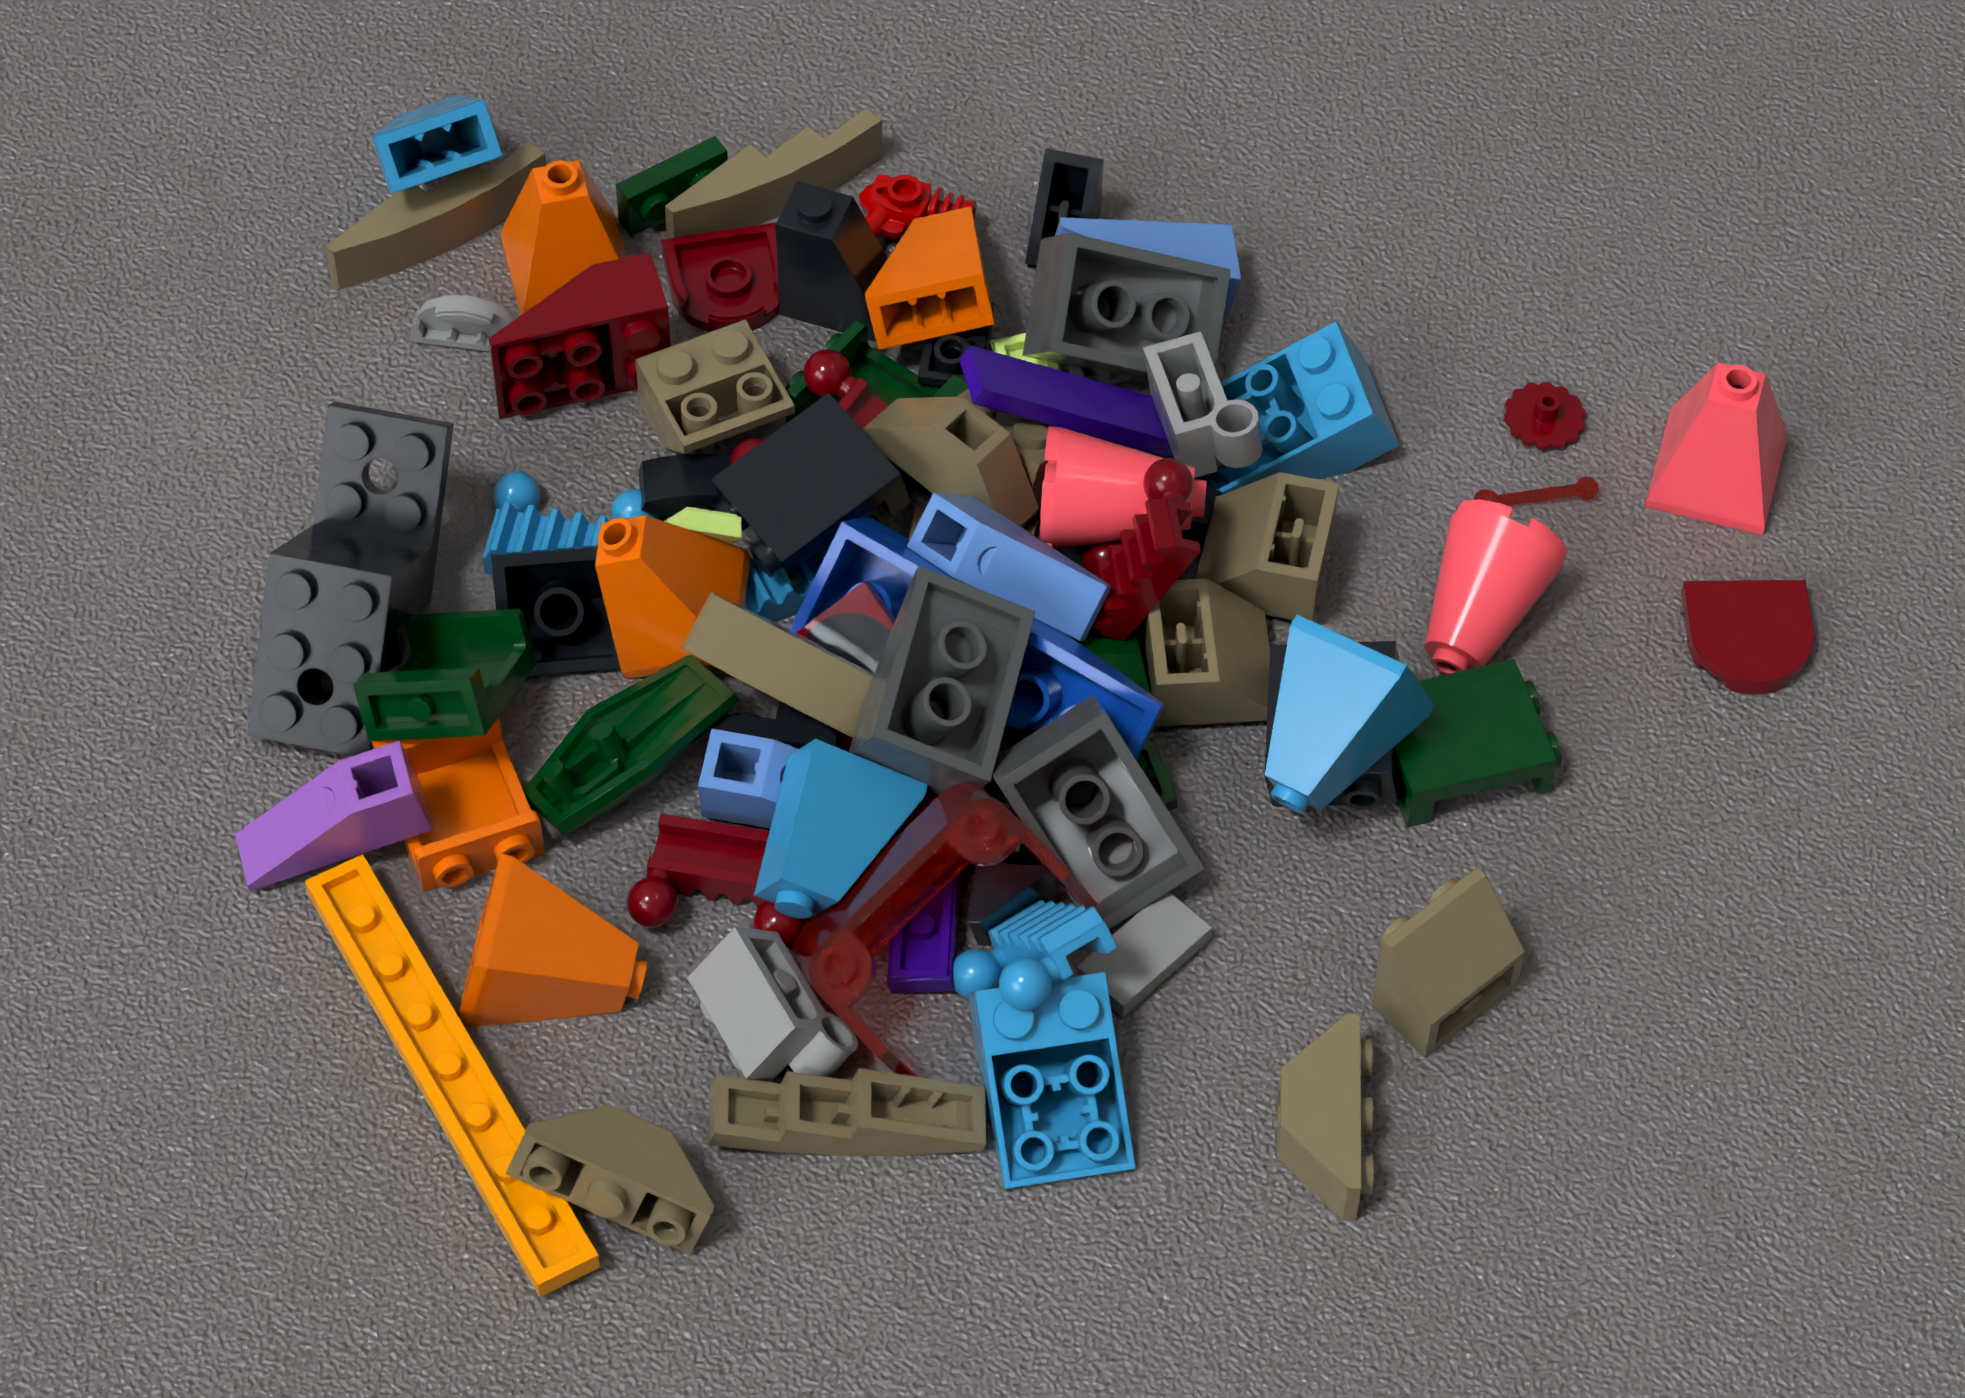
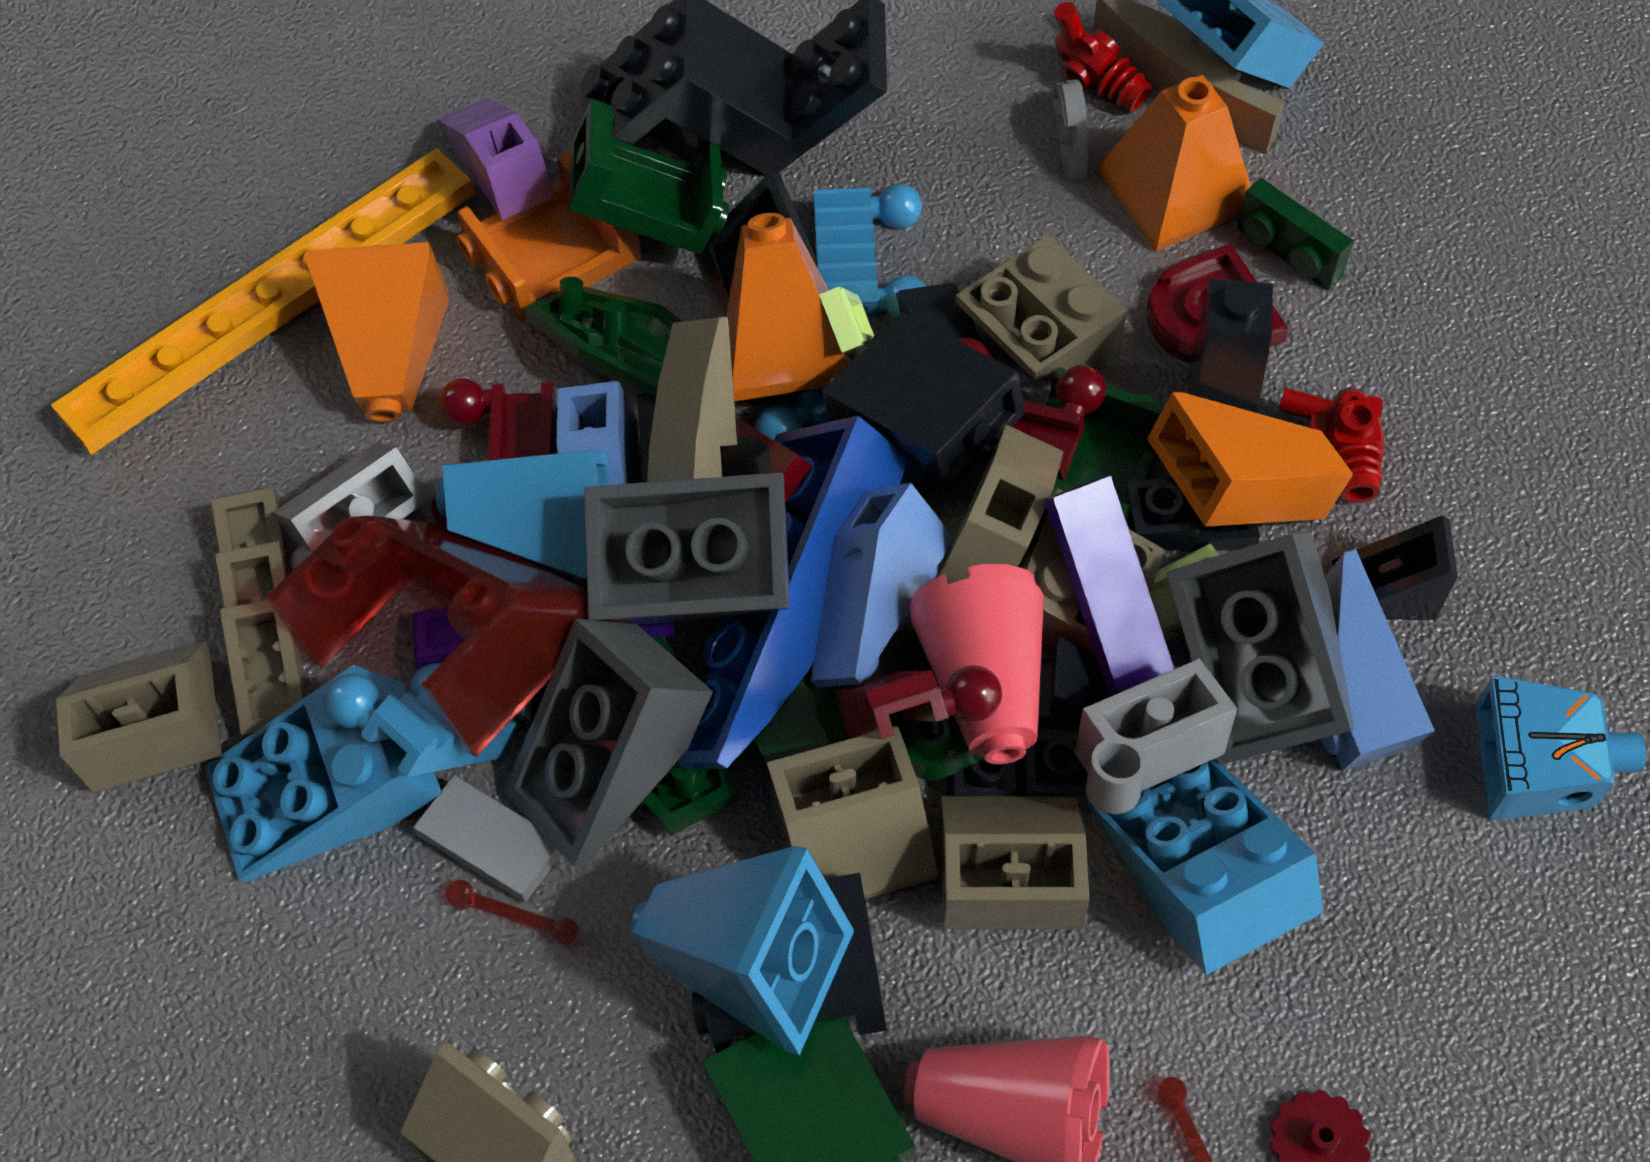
camera: 80 degrees right, 5 degrees up
(397, 287) = (1095, 63): none -> red piece
(581, 338) = (1067, 192): dark red slope -> none
(618, 1172) = (159, 433): dark tan slope -> none
(757, 186) = (1353, 328): dark tan slope -> none
(942, 1215) = (140, 718): none -> dark tan slope
(1193, 984) = (462, 896): none -> clear red hinge
(1252, 167) = (1548, 749): none -> dark azure torso
(1326, 1116) = (296, 1050): dark tan slope -> none

